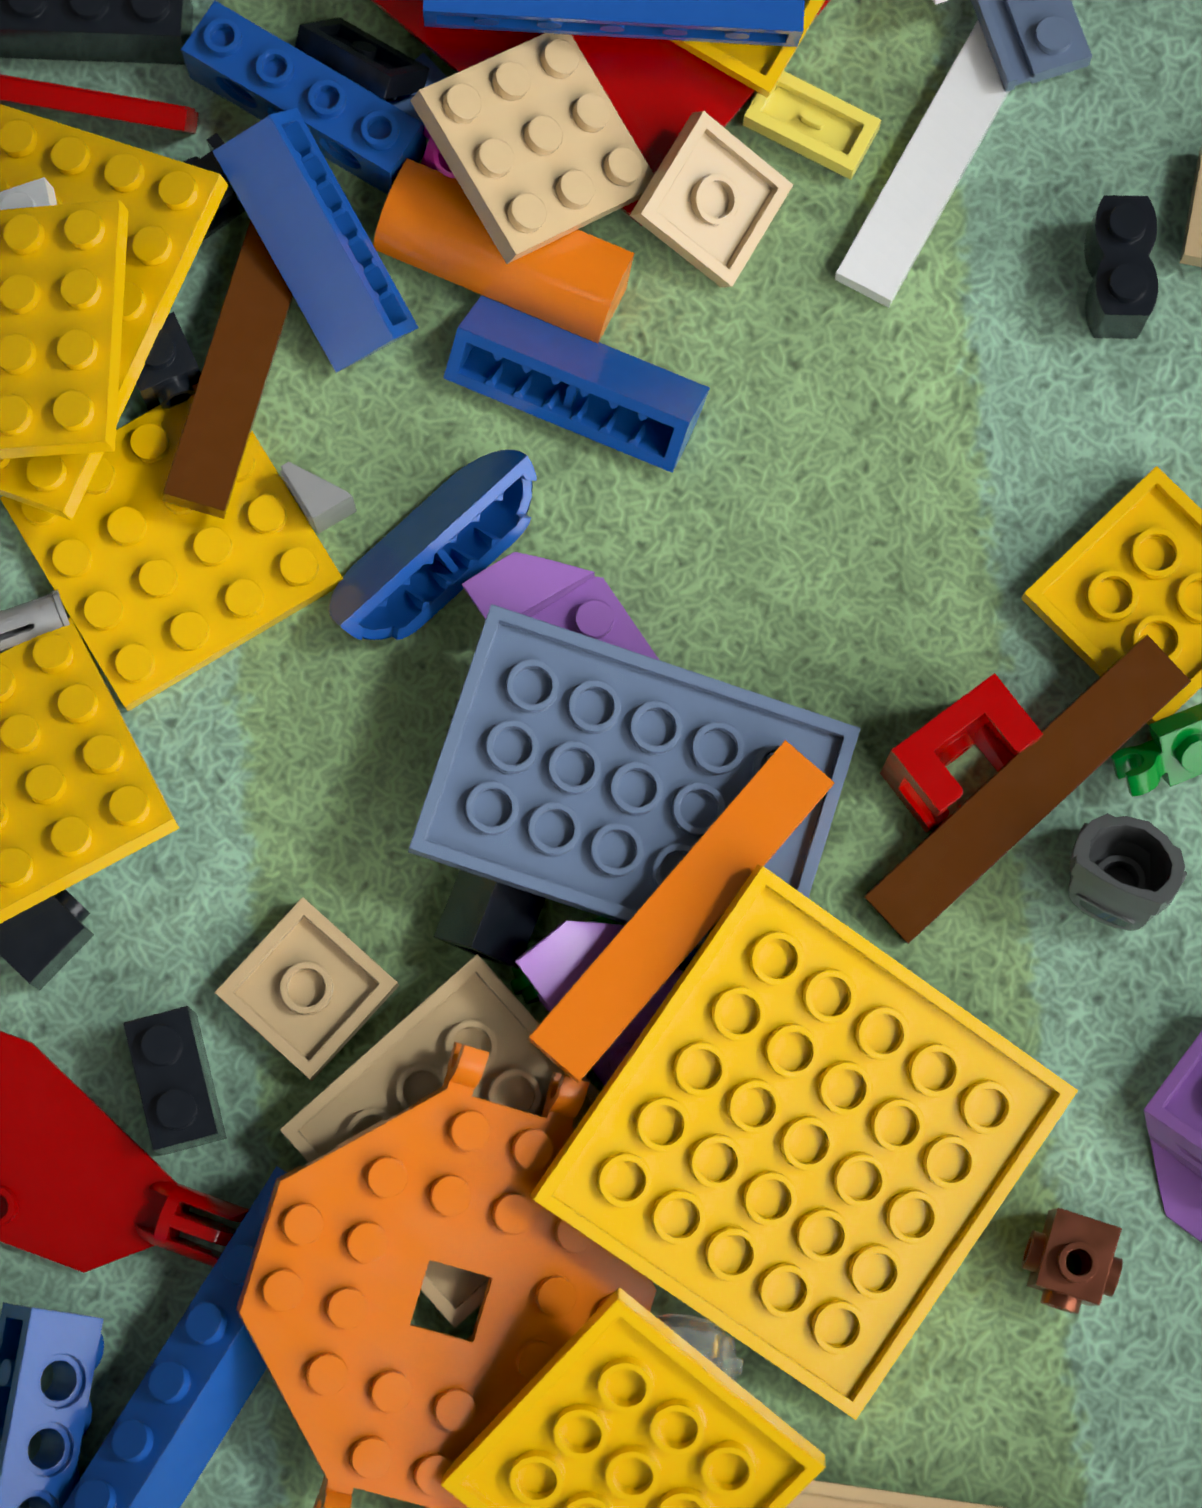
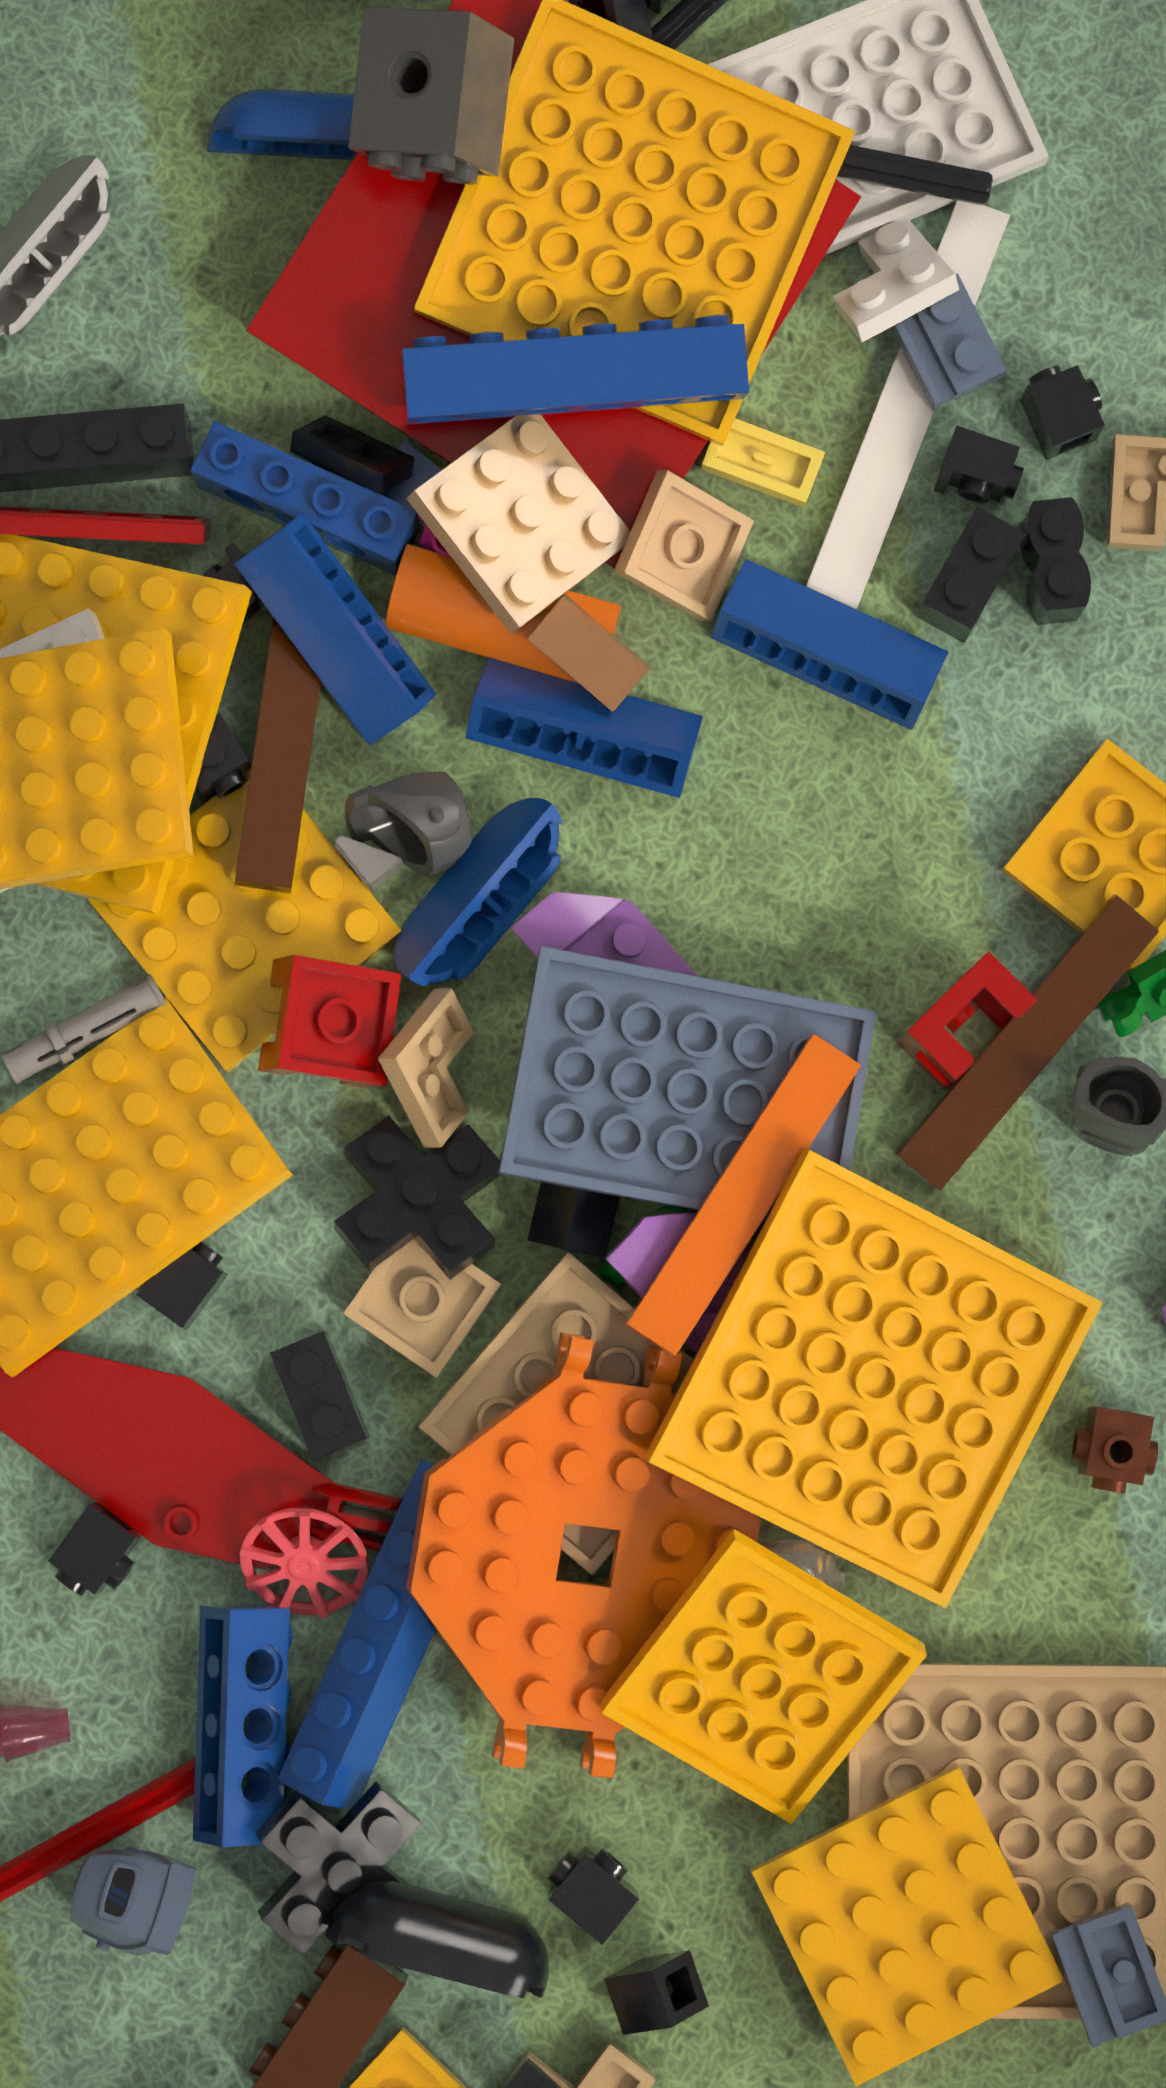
camera: 10 degrees left, 5 degrees up
(127, 1268) = (304, 1563): none -> coral wheel
(249, 663) = (331, 1020): none -> red panel
(318, 873) = (418, 1197): none -> black plate
(338, 724) = (419, 1063): none -> tan plate
(372, 453) = (415, 818): none -> dark grey helmet
(590, 297) = (589, 652): none -> medium nougat tile
(858, 327) = (828, 644): none -> blue brick
(1025, 270) = (970, 574): none -> black brick
(1049, 157) = (979, 467): none -> black brick
(1148, 108) = (1062, 409): none -> black brick

